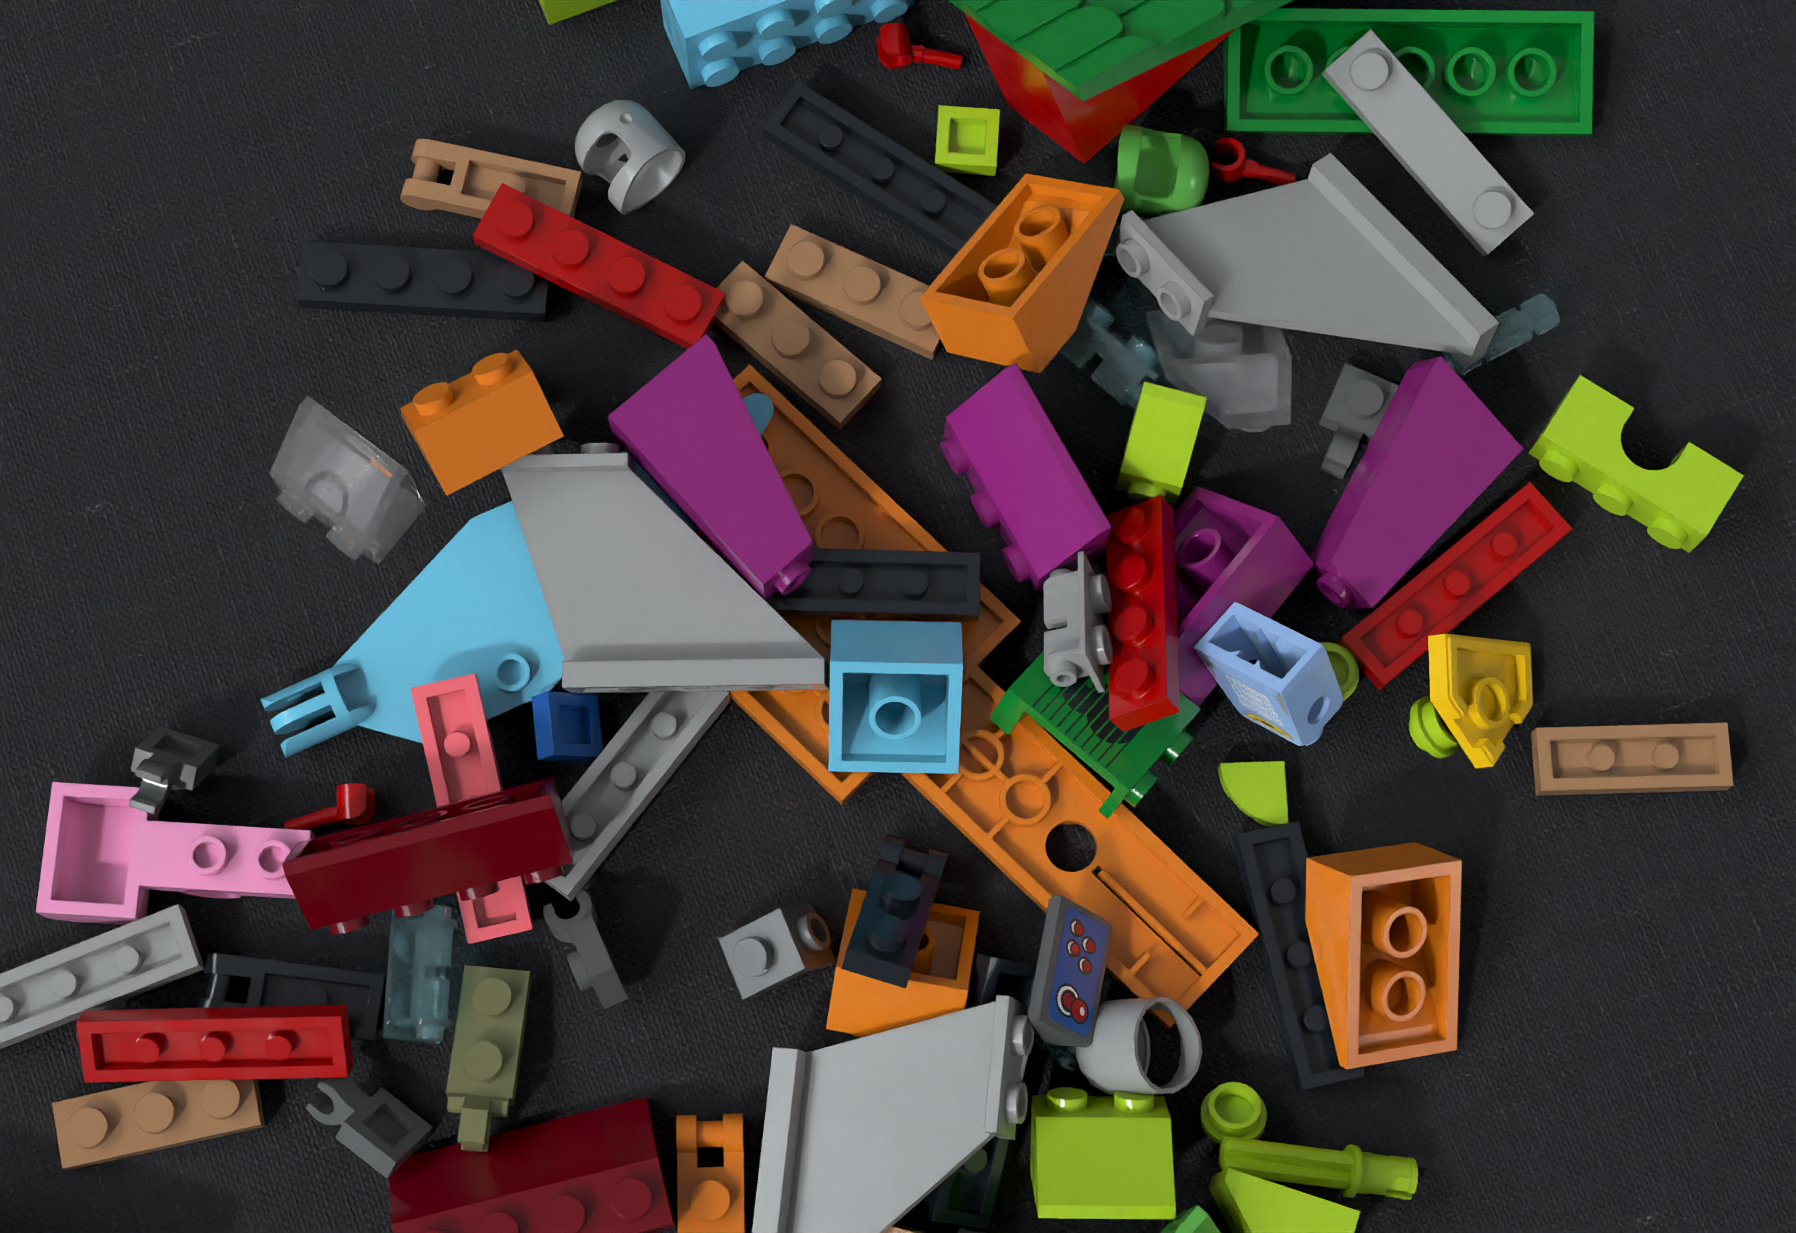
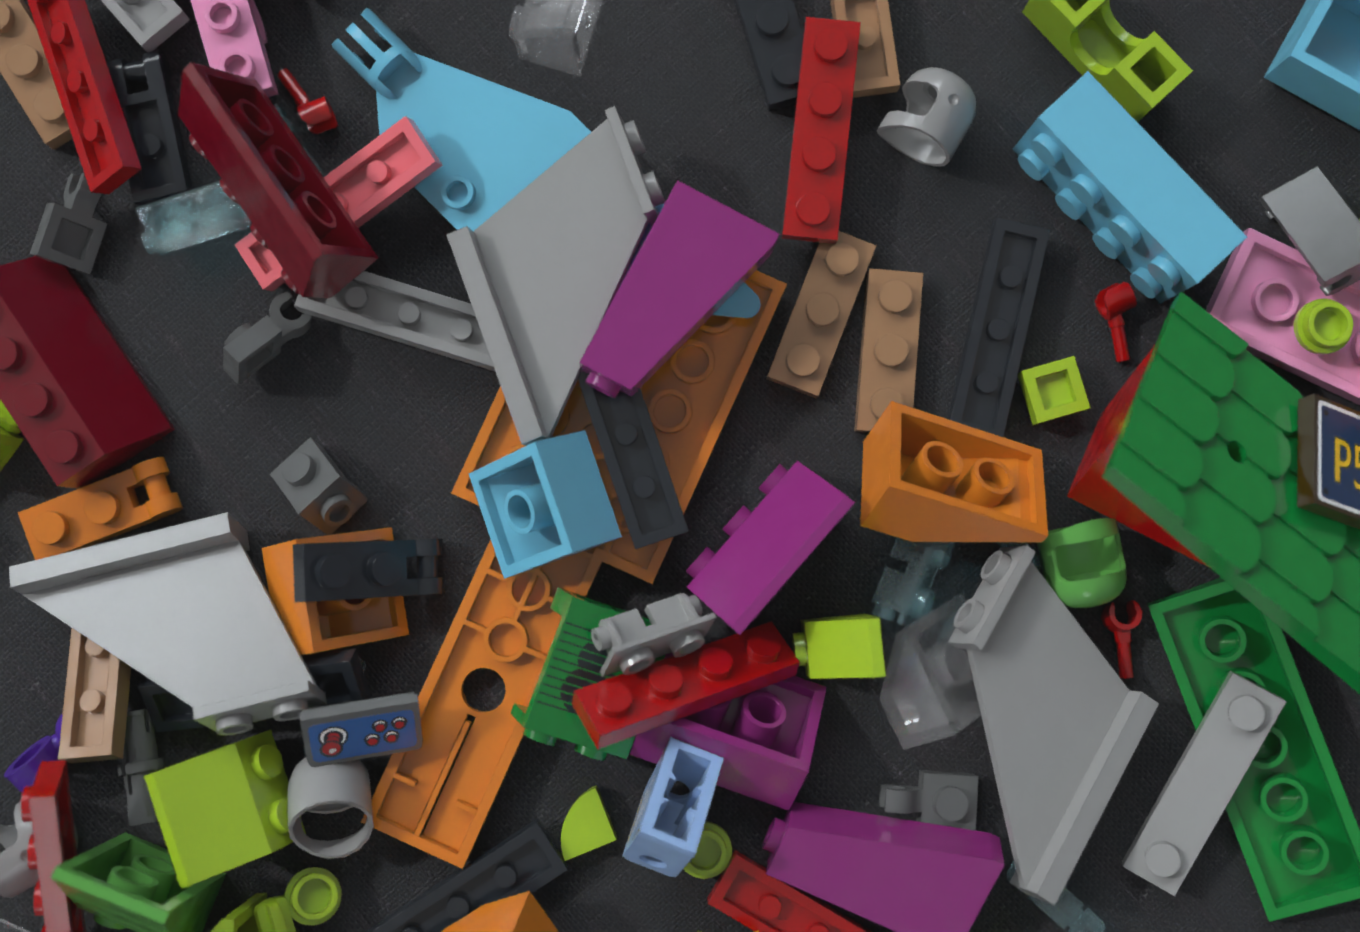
camera: 75 degrees right, 10 degrees up
(481, 420) = (637, 79): orange slope -> none
(487, 1050) = (157, 292): olive hinge -> none
(567, 727) = (429, 254): blue plate -> none

